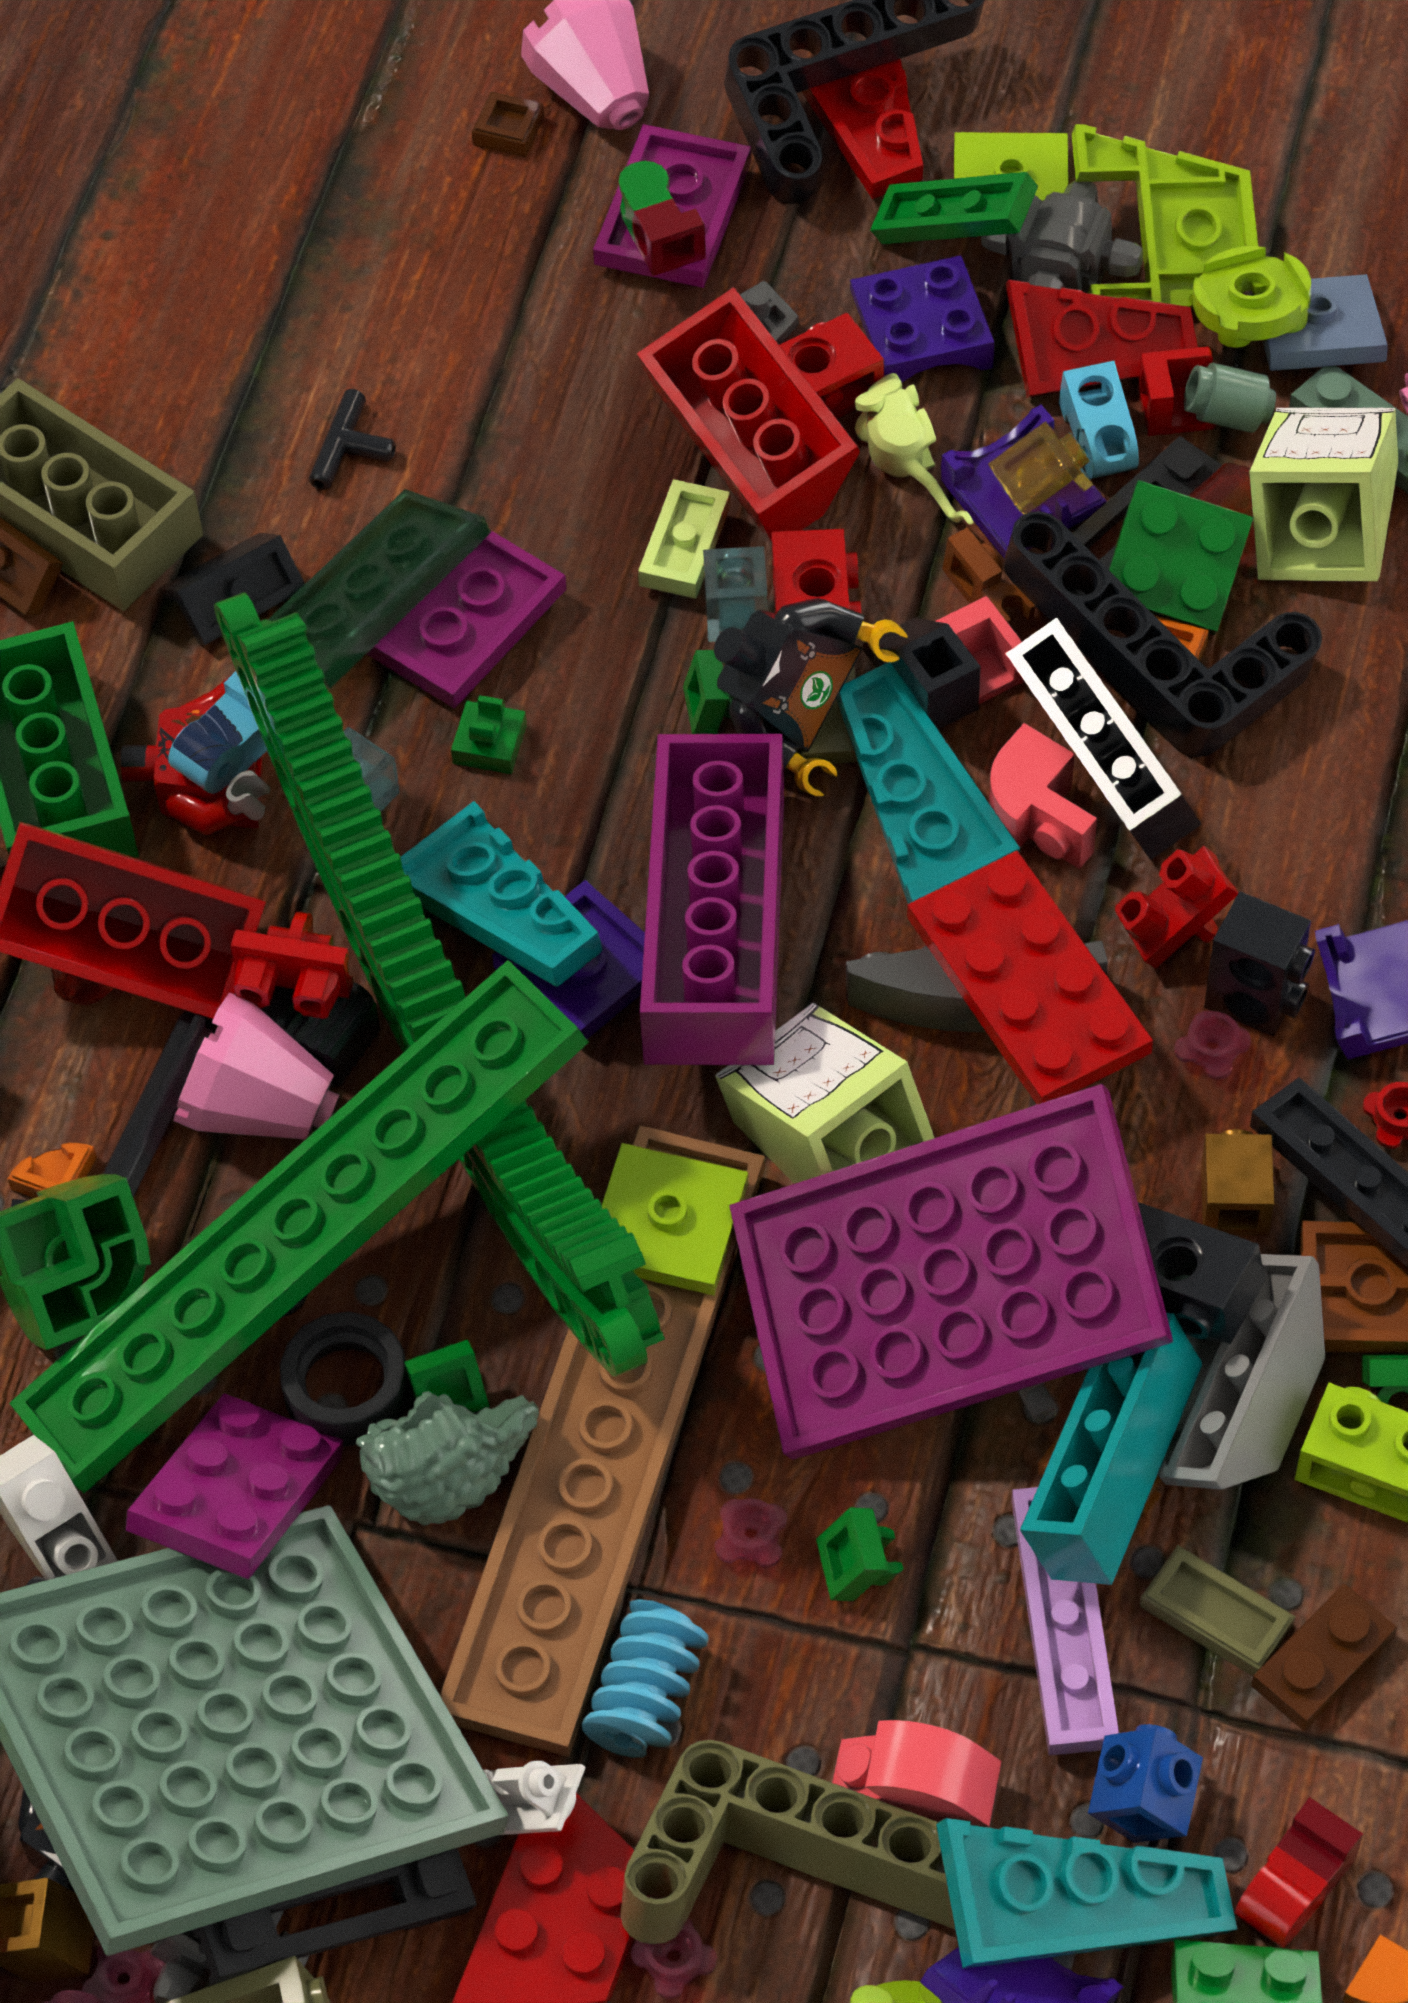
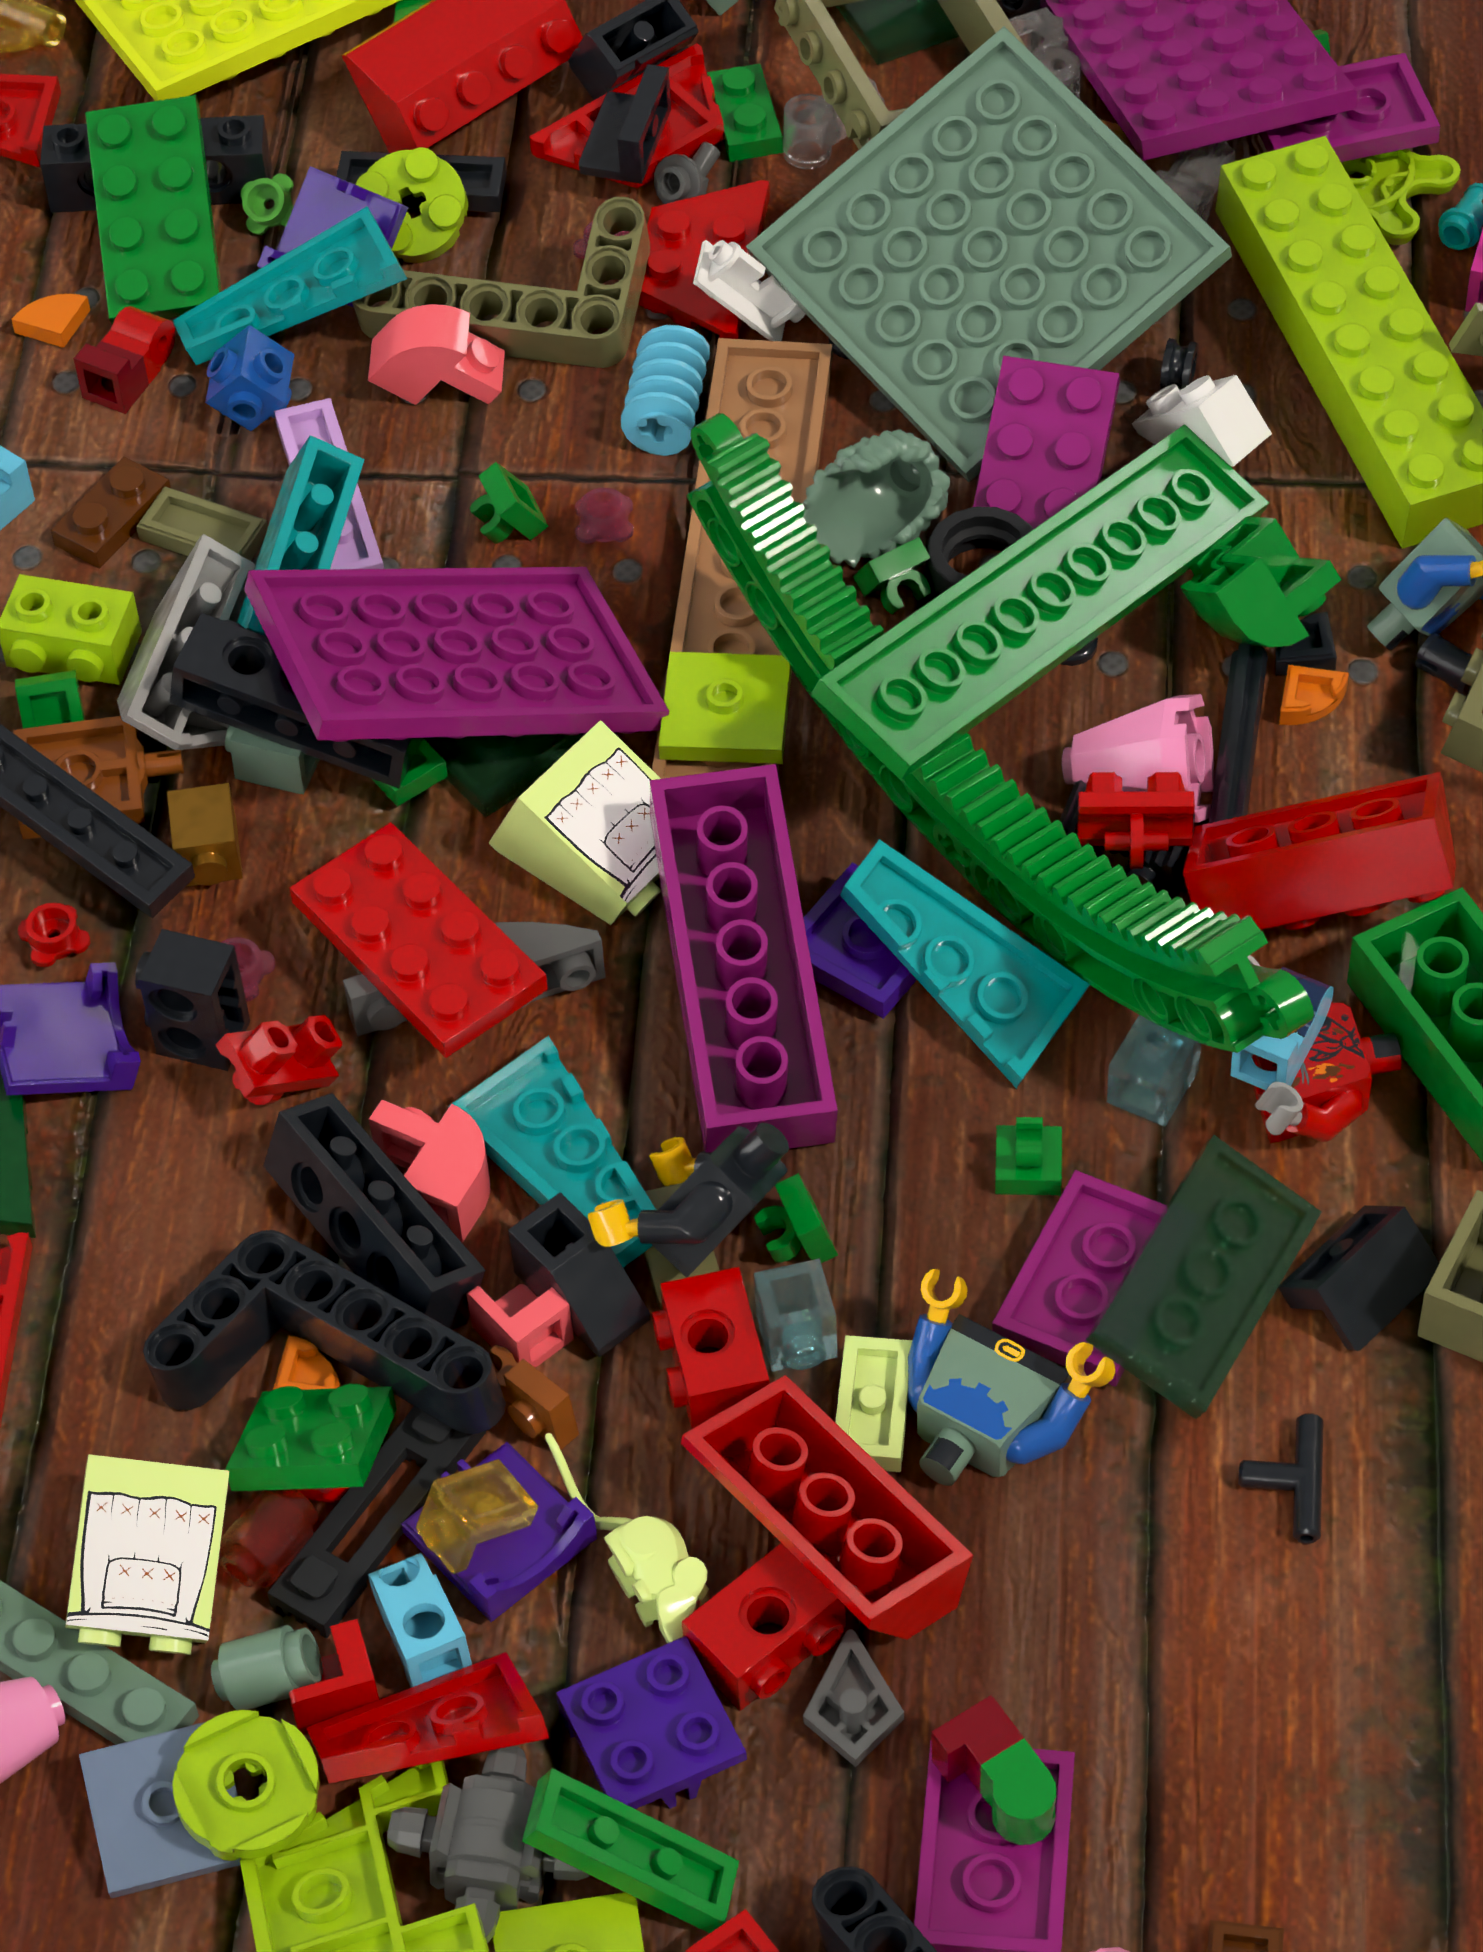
camera: 170 degrees right, 5 degrees down
(579, 513) = (987, 1396): none -> torso

